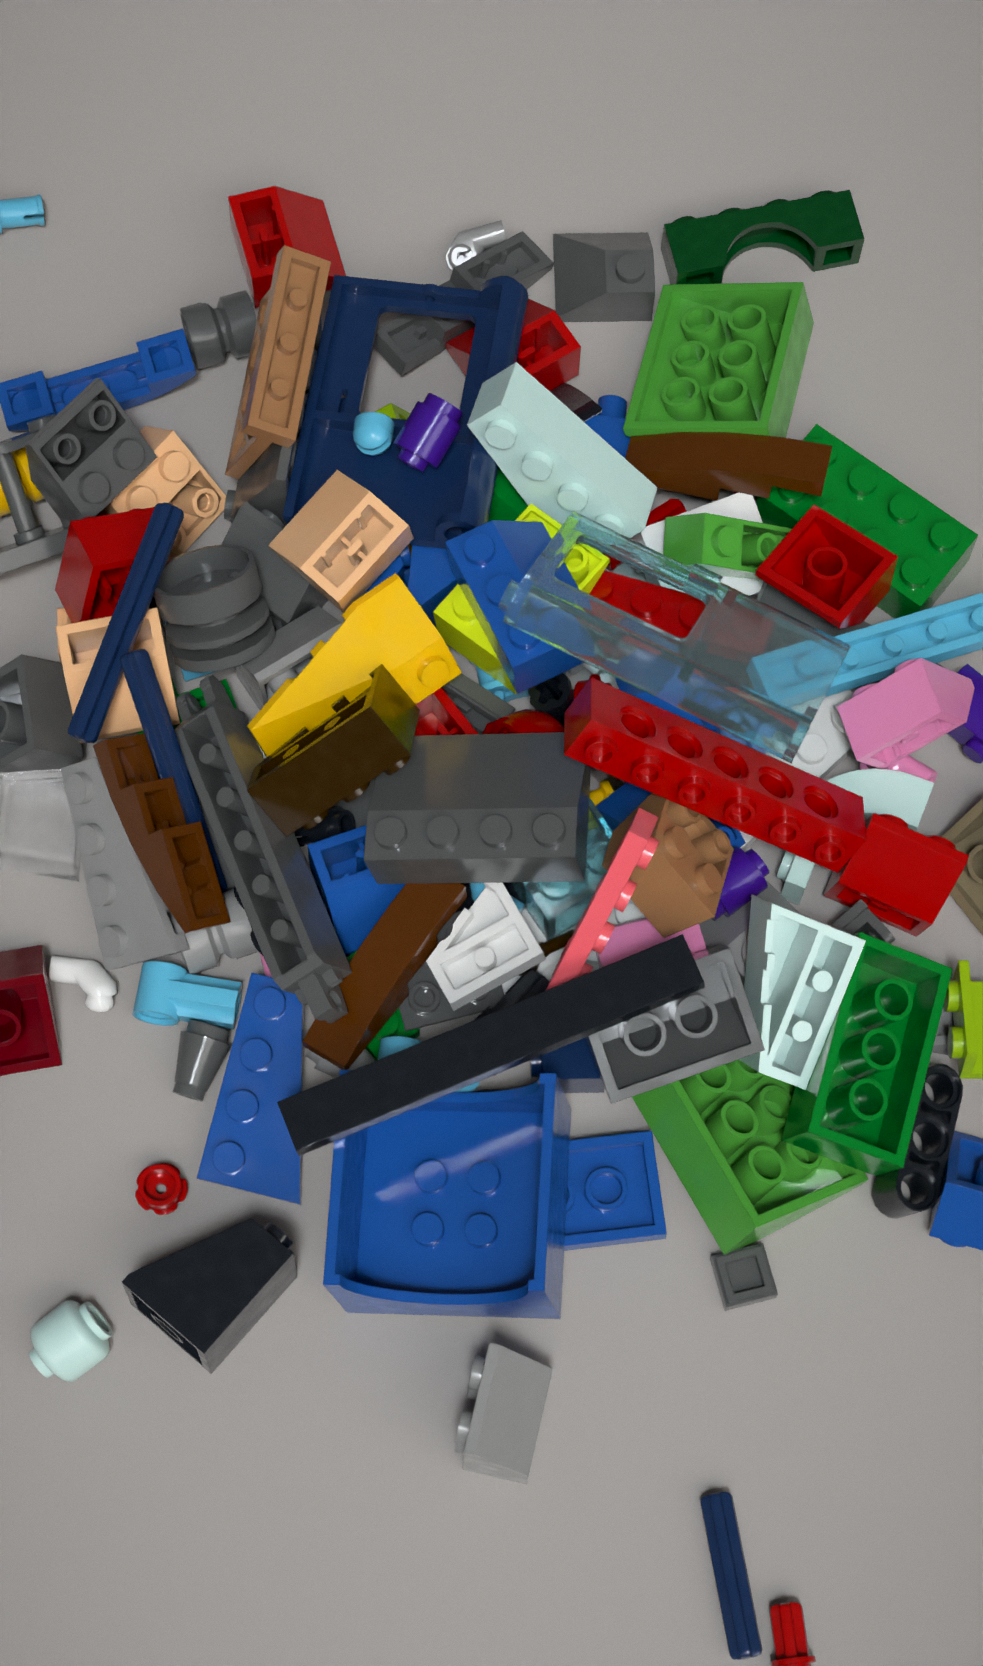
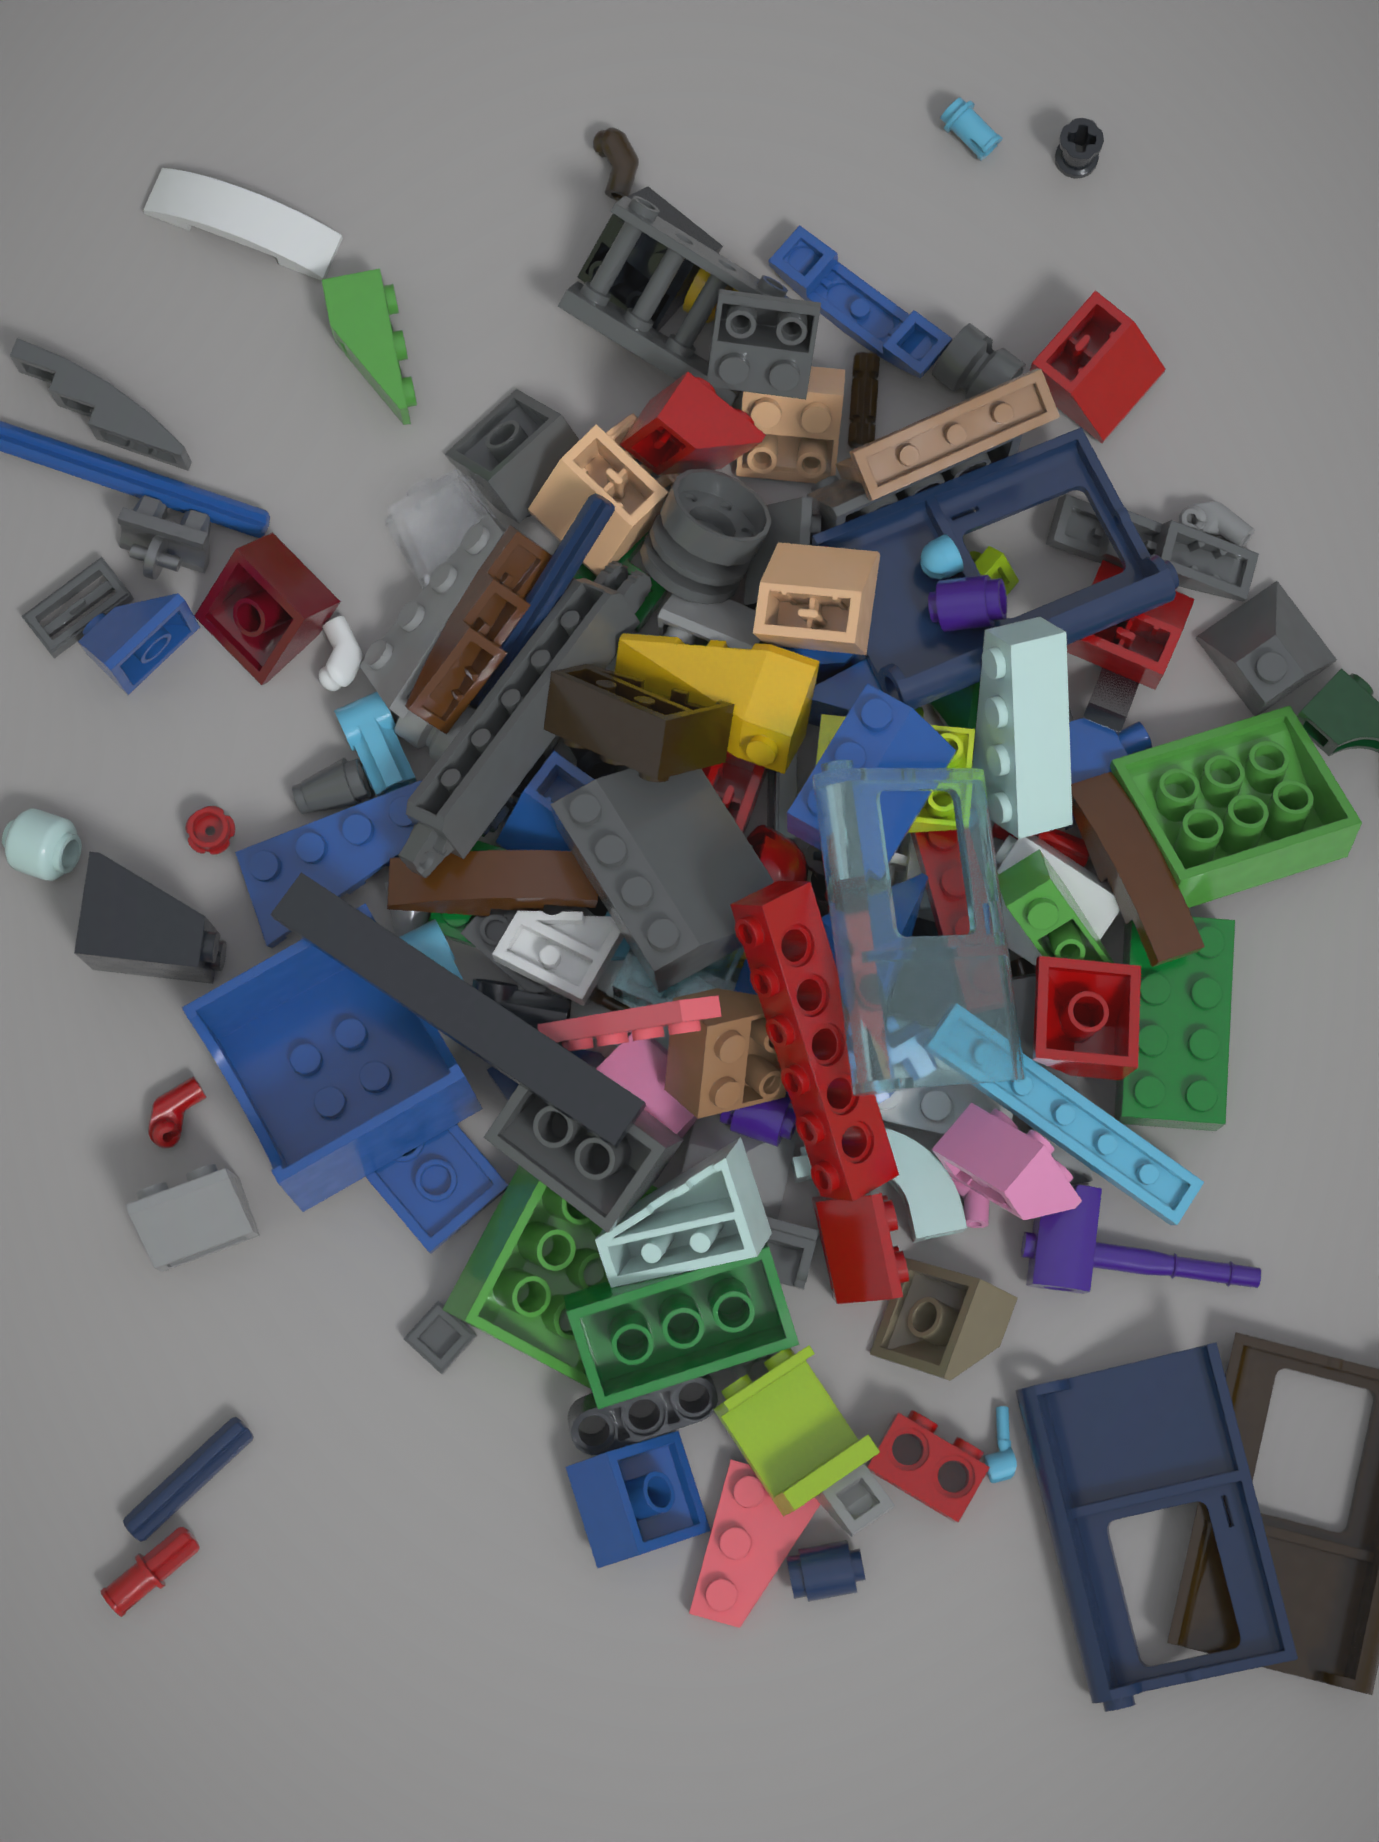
camera: 60 degrees right, 10 degrees up
(93, 144) = (1083, 133): none -> black bush
(125, 622) = (633, 476): dark blue axle -> none
(152, 414) = (863, 399): none -> dark brown axle
(389, 1385) = (169, 1112): none -> red arm

